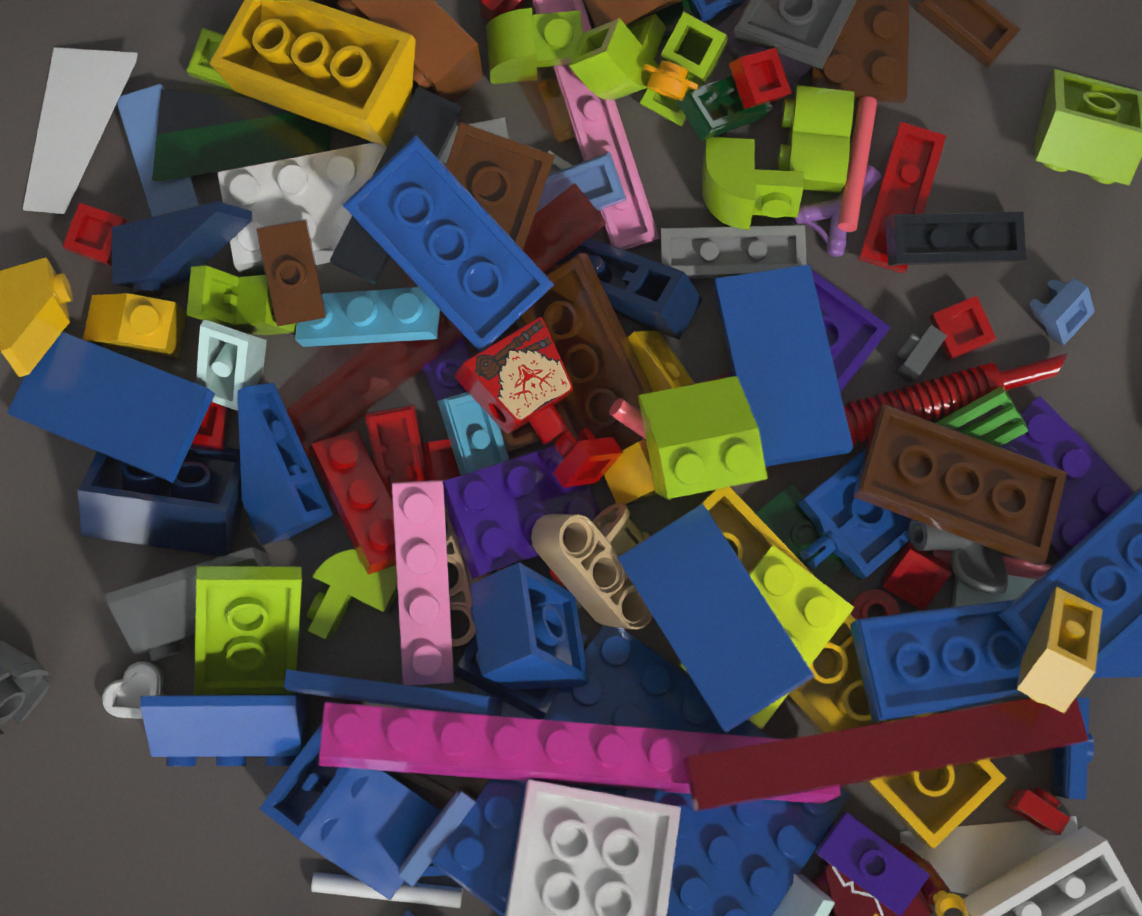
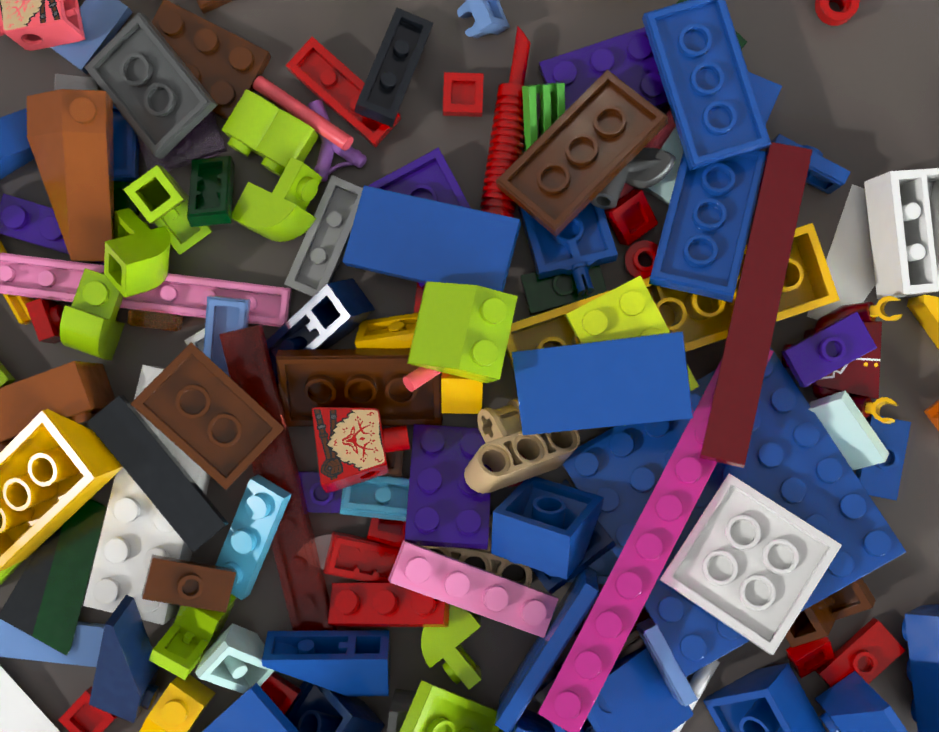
camera: 65 degrees left, 5 degrees up
(448, 244) = (221, 456): blue tile -> none
(584, 457) = (433, 423): red tile -> none
(669, 80) = (172, 225): light orange plate -> none
(760, 78) = (202, 155): red plate -> none
(918, 352) = (466, 135): dark grey plate -> none
(1039, 810) = (839, 208): red plate -> none
(1061, 651) = (743, 137): yellow slope -> none

